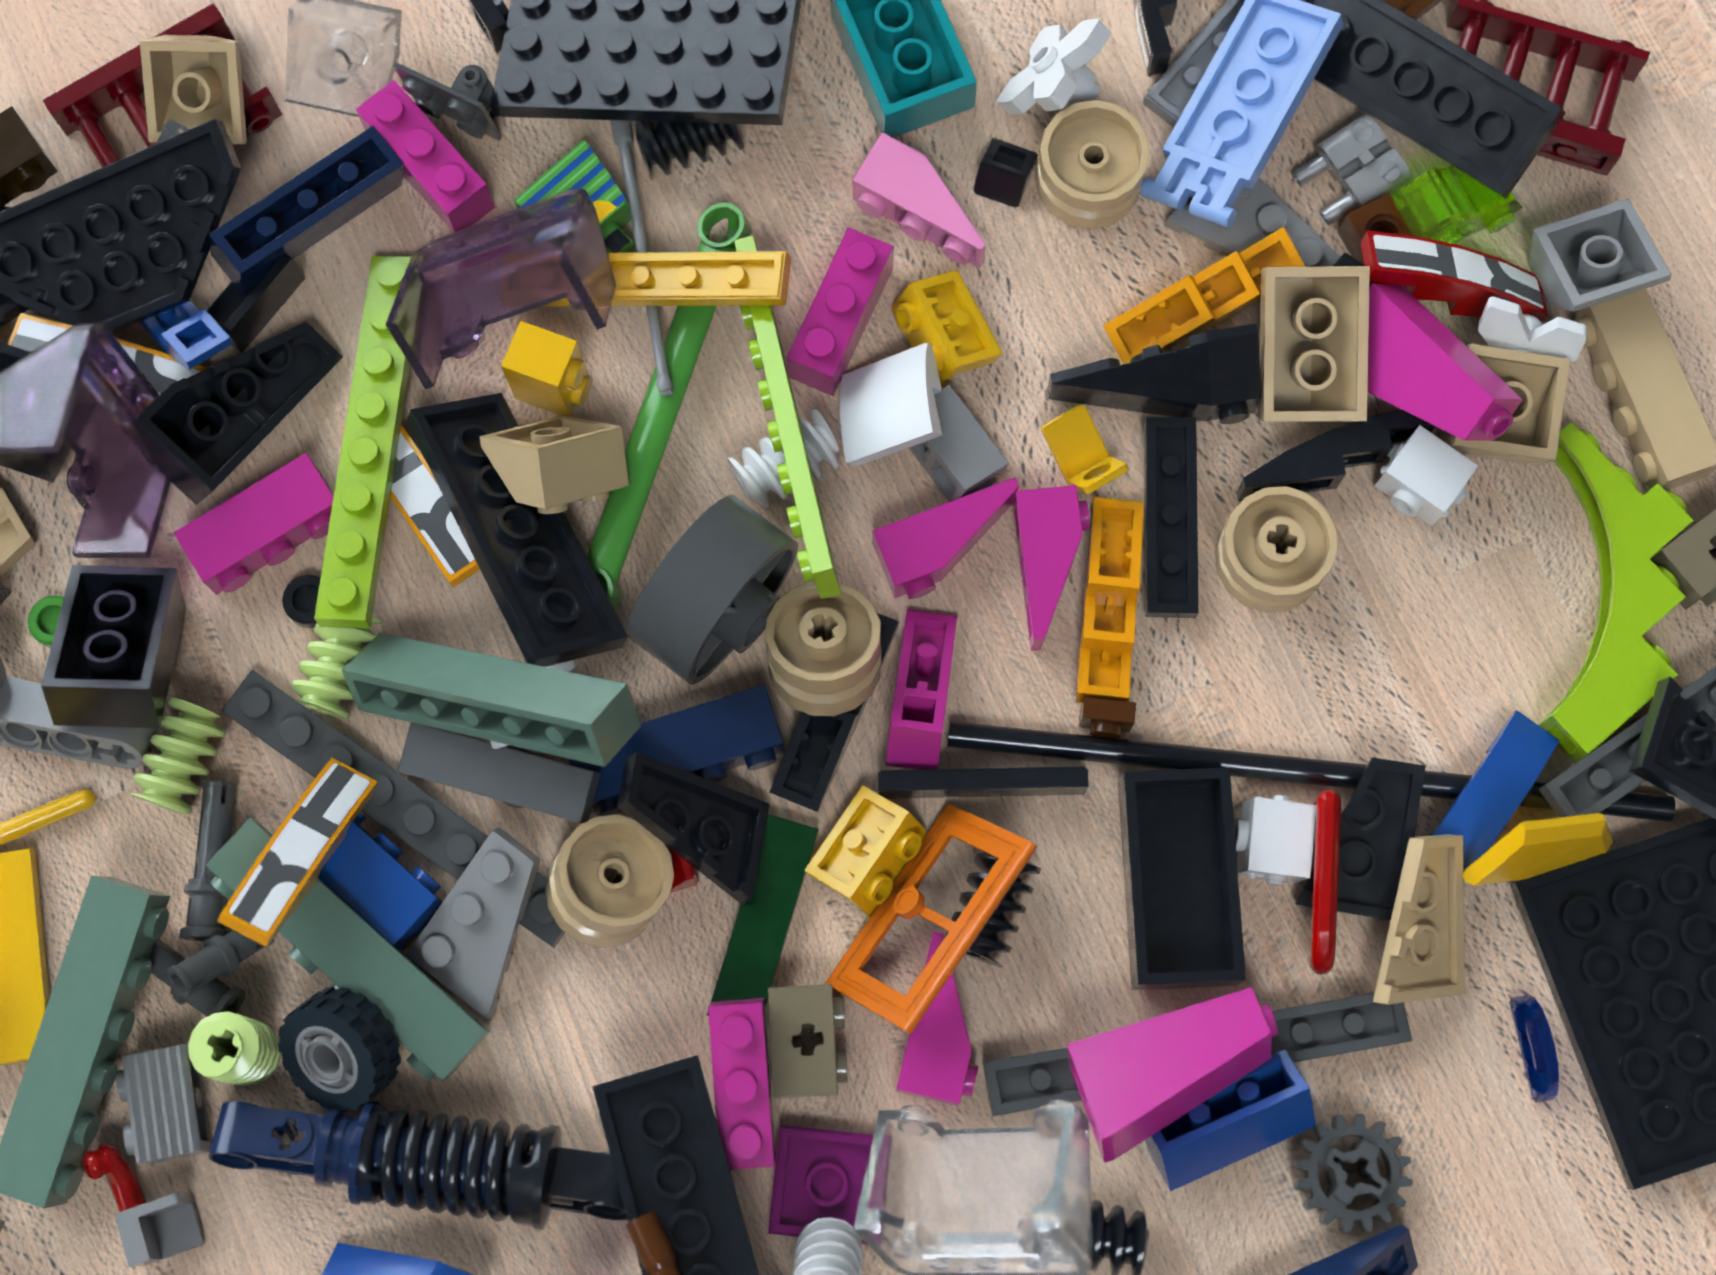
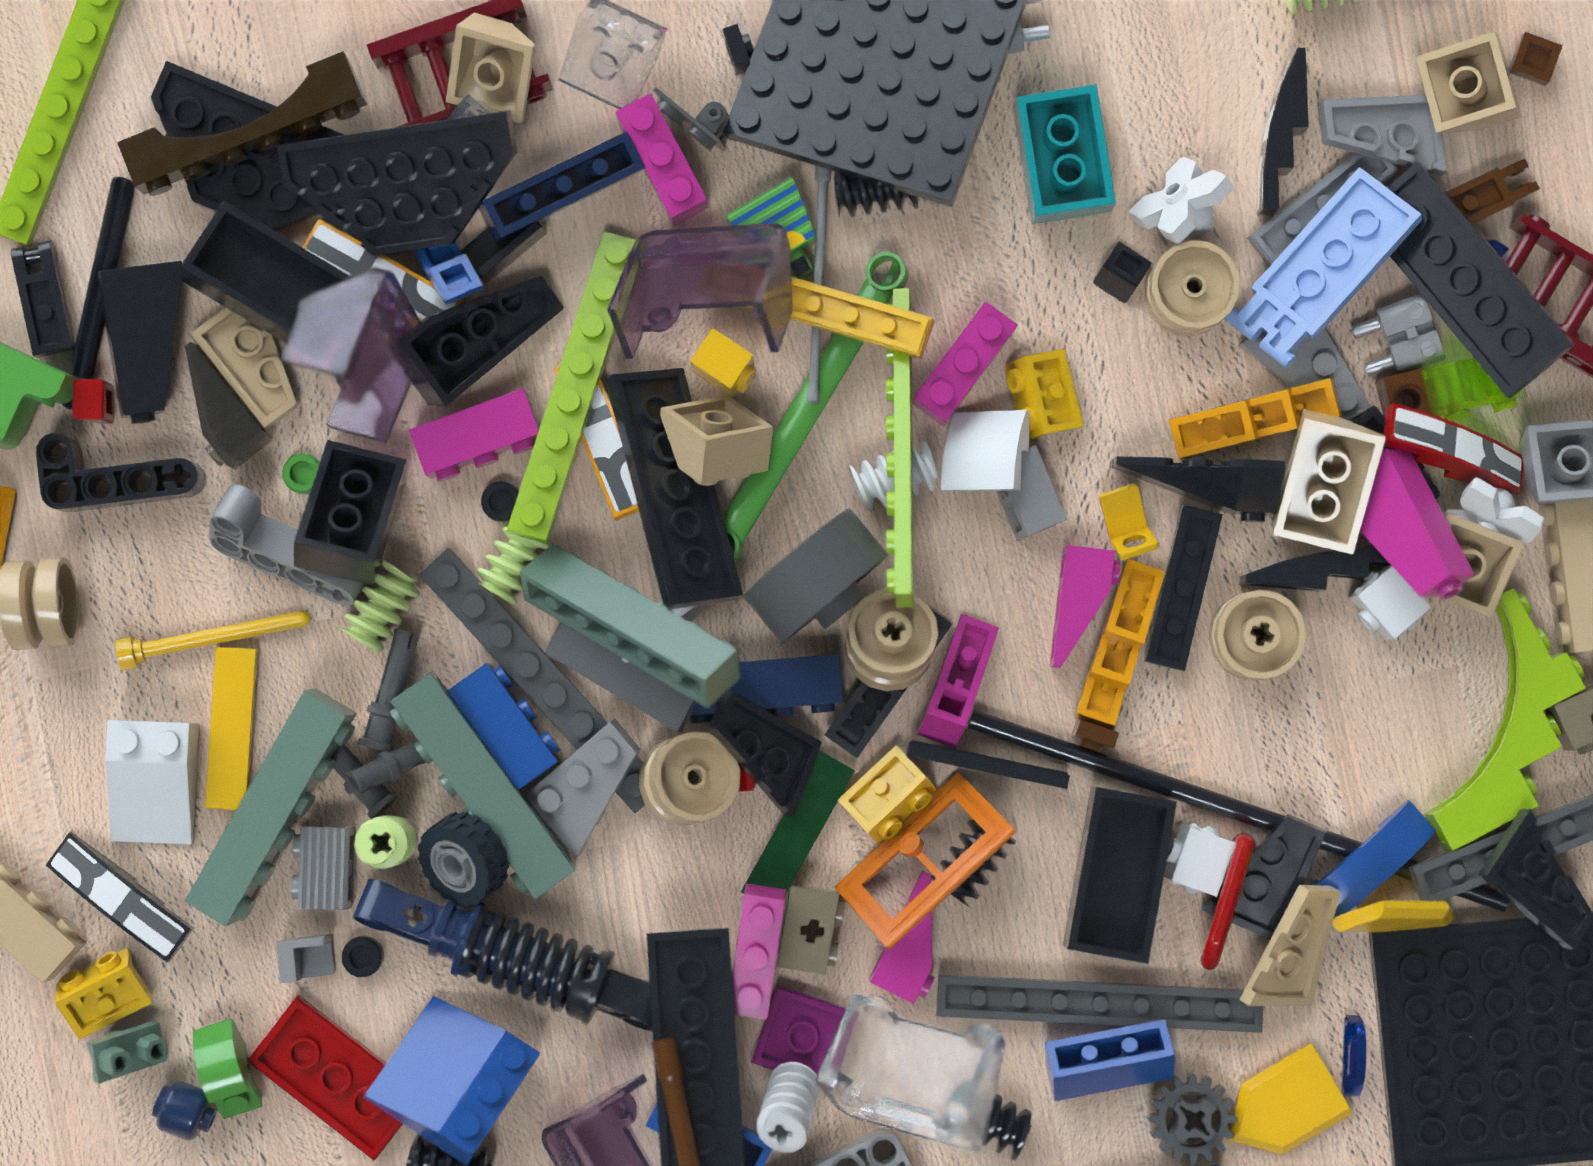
camera: 10 degrees right, 10 degrees up
(120, 1175) = (282, 911): red arm -> none
(236, 1212) = (362, 956): none -> black tile
(297, 852) = (463, 709): slope -> none
(908, 191) = (1041, 274): bright pink slope -> none
(931, 543) = (991, 568): dark pink slope -> none
(1166, 1066) = (1073, 1013): dark pink slope -> none
(1469, 1127) = (1288, 1103): none -> yellow tile

